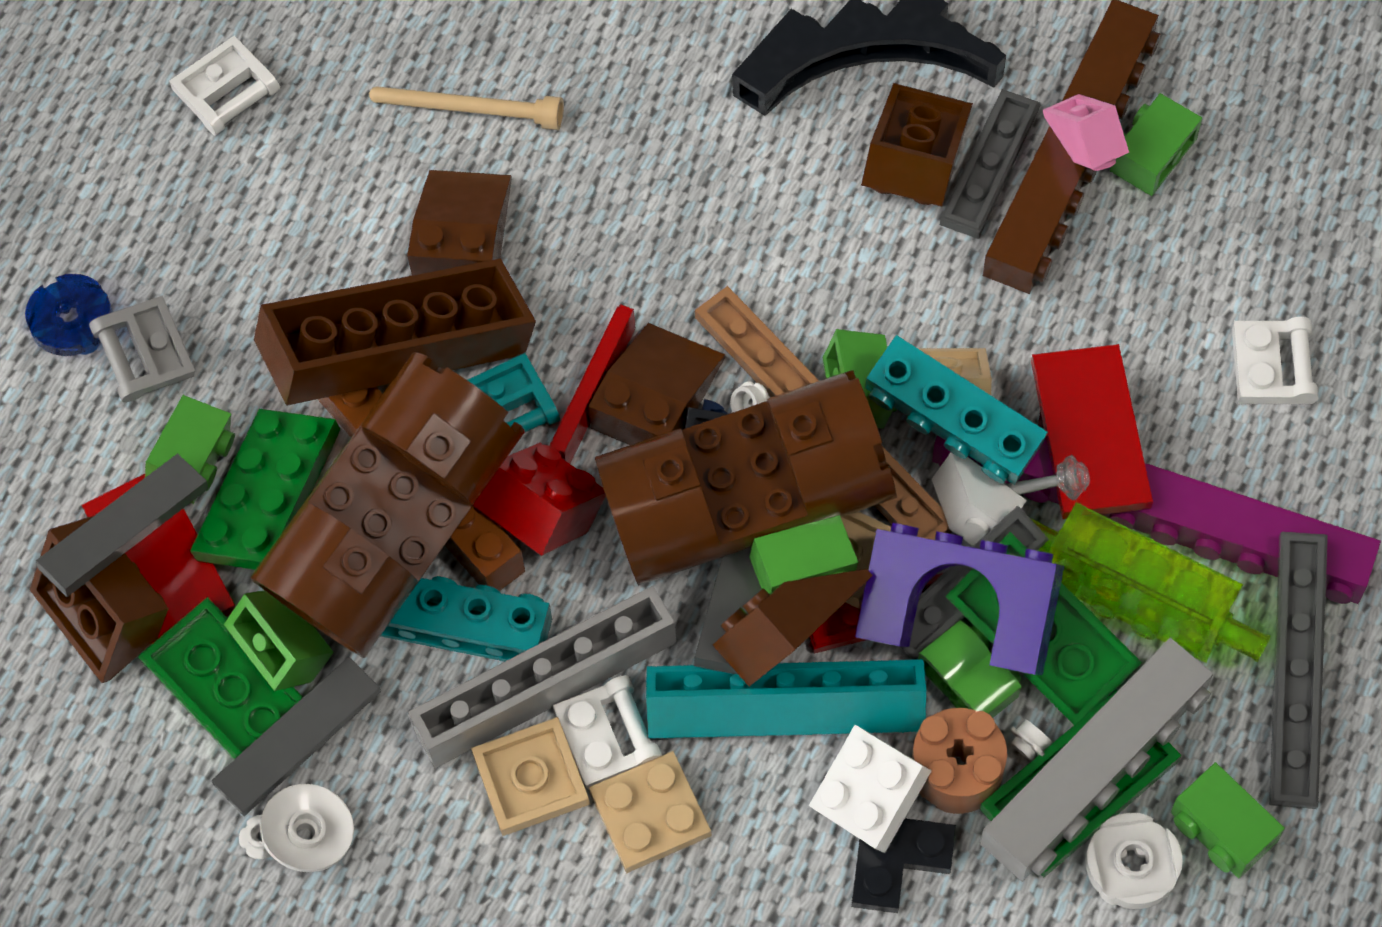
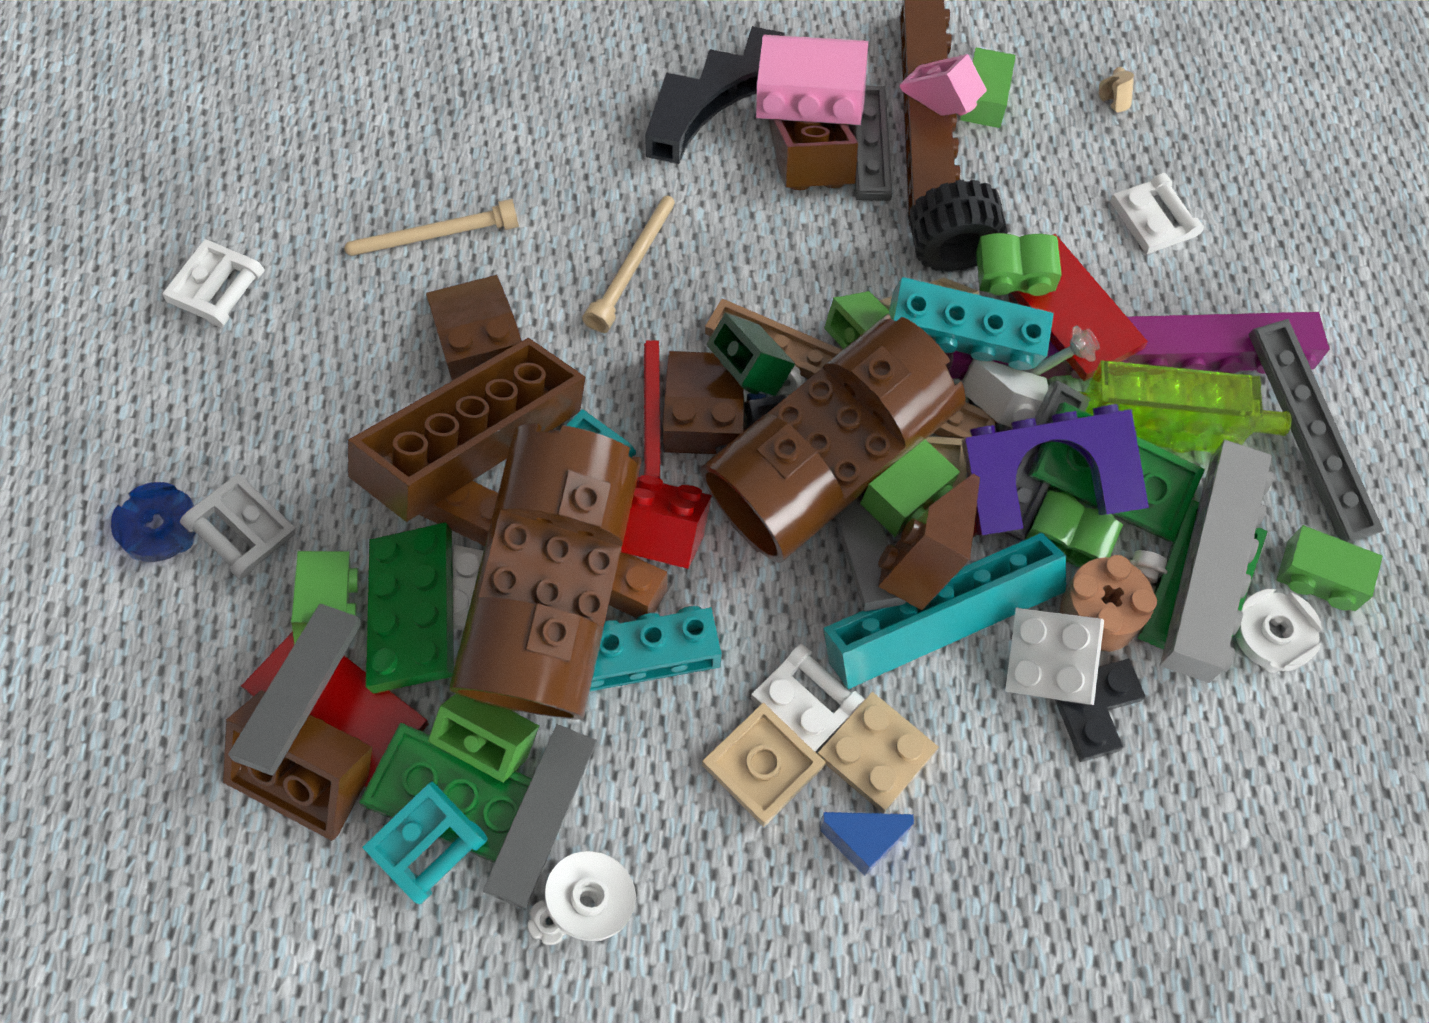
camera: 30 degrees left, 0 degrees up
(172, 703) = (413, 832): none -> teal plate
(543, 676) = (733, 675): light grey brick -> none
(595, 885) = (865, 836): none -> blue slope
(596, 256) = (601, 314): none -> tan piece
(714, 359) = (750, 355): none -> dark green brick
(943, 73) = (812, 79): none -> bright pink slope
(1017, 297) = (951, 221): none -> black tyre
(1047, 364) = (1018, 263): none -> bright green brick
(1314, 198) = (1119, 88): none -> tan piece

